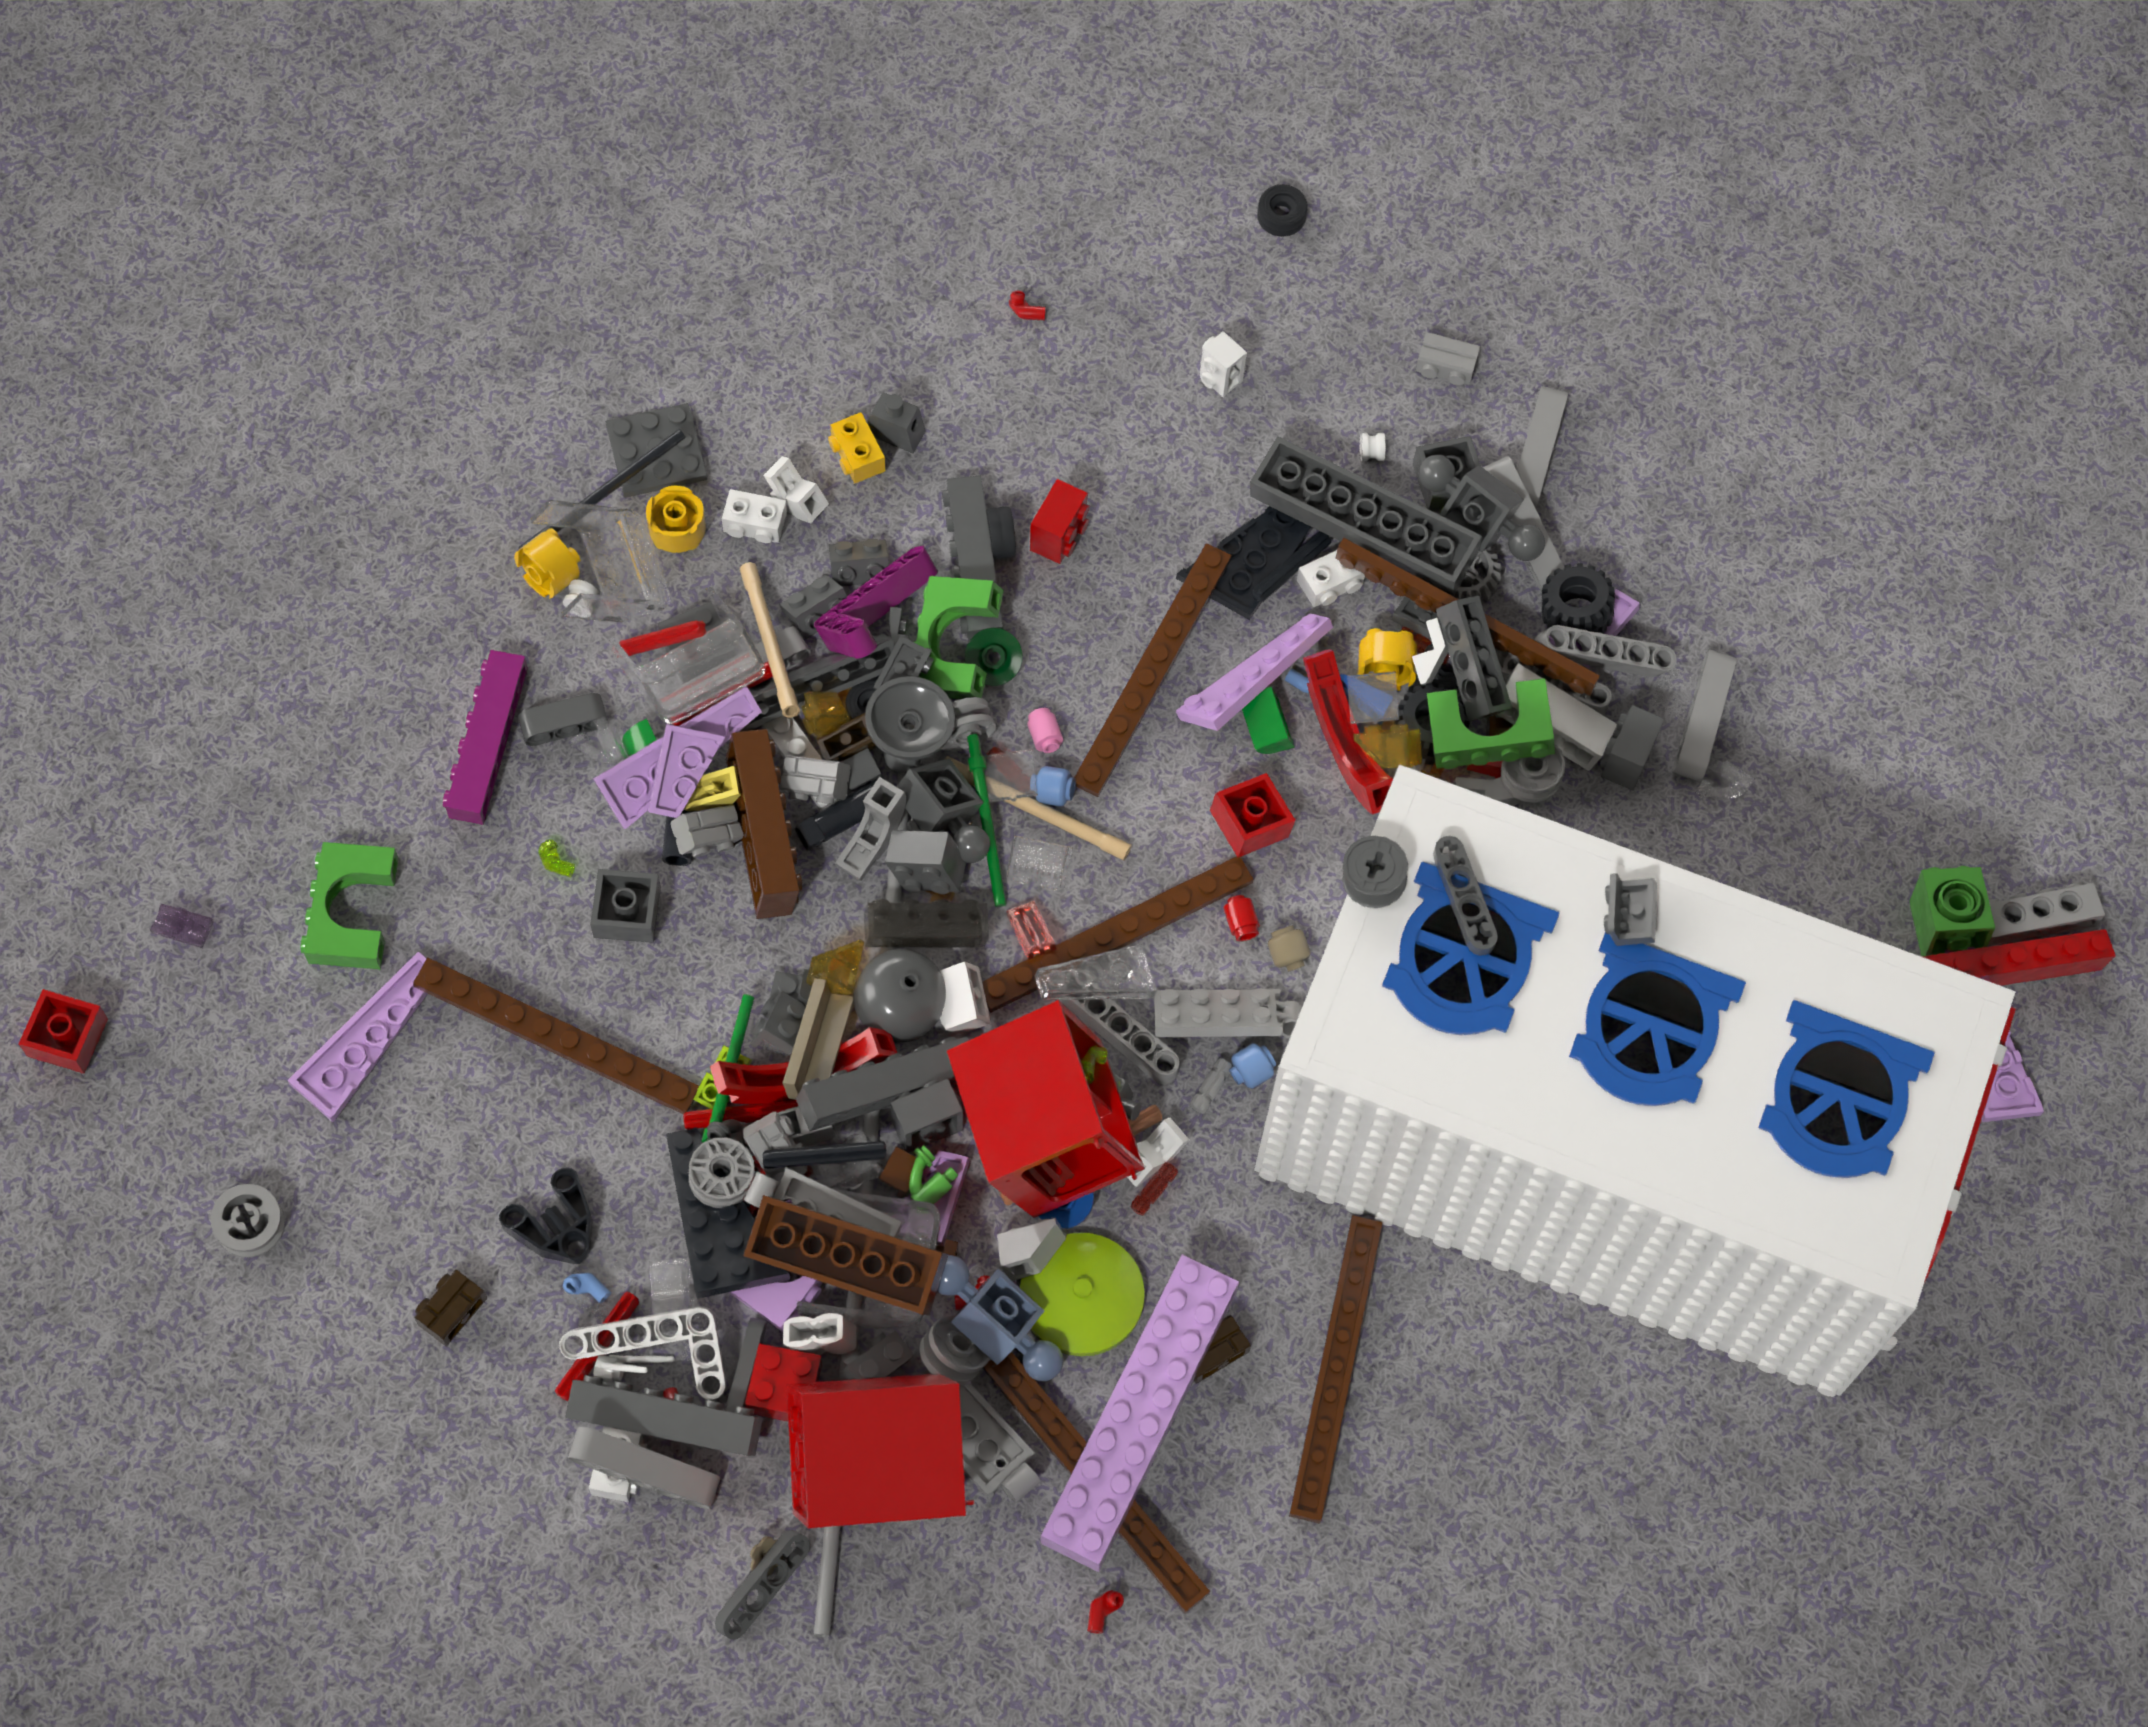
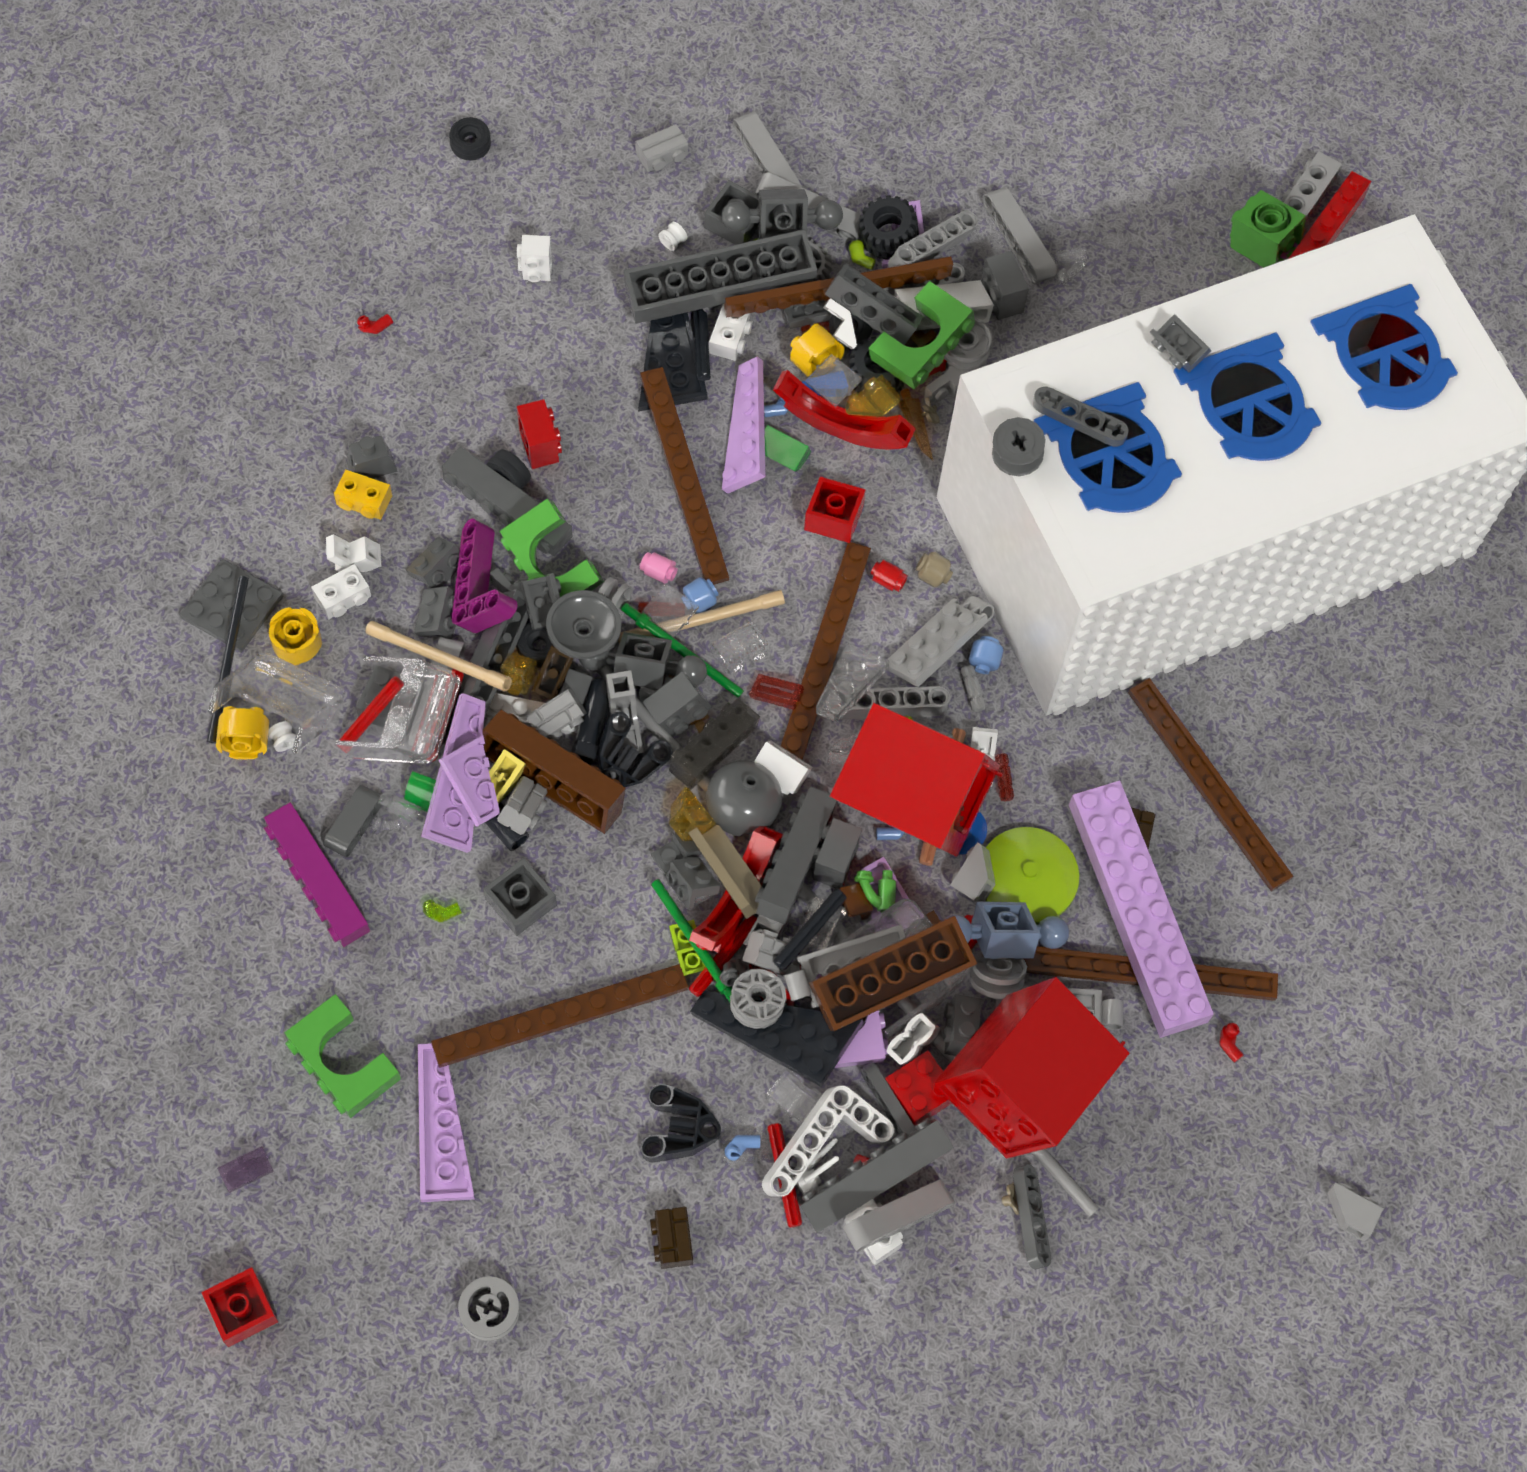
camera: 45 degrees left, 0 degrees up
(834, 843) = (611, 743): none -> black connector
(1000, 641) = (586, 537): dark green dish -> none
(1528, 608) = (858, 255): none -> lime arm

